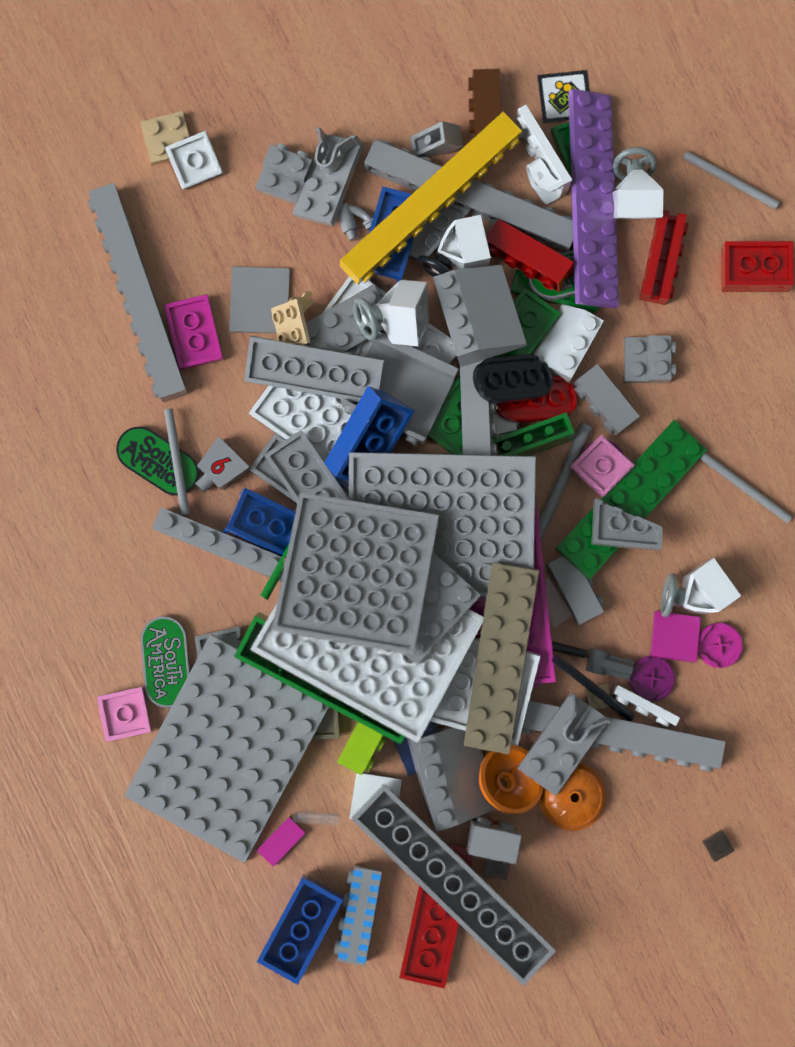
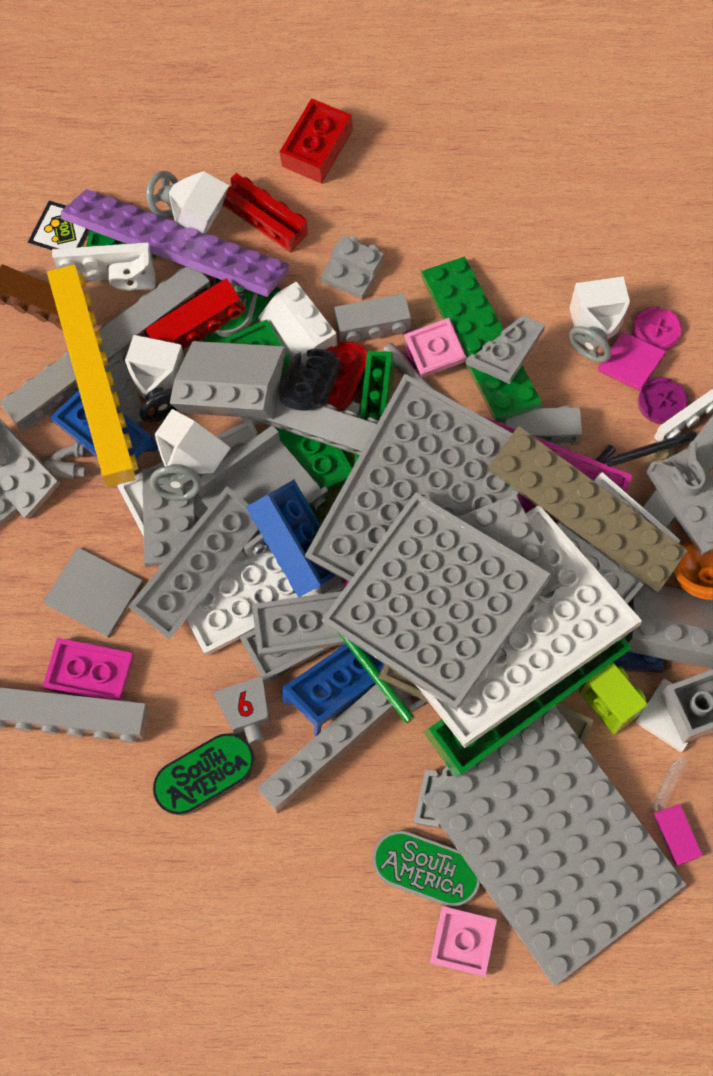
camera: 60 degrees left, 15 degrees down
(177, 463) = (216, 751): light grey axle -> none
(290, 319) = (134, 562): tan plate -> none
(437, 140) = (34, 351): light grey slope -> none
(604, 663) = (629, 434): dark grey piece -> none
(730, 179) = (223, 130): light grey axle -> none
(745, 487) = (517, 241): light grey axle -> none

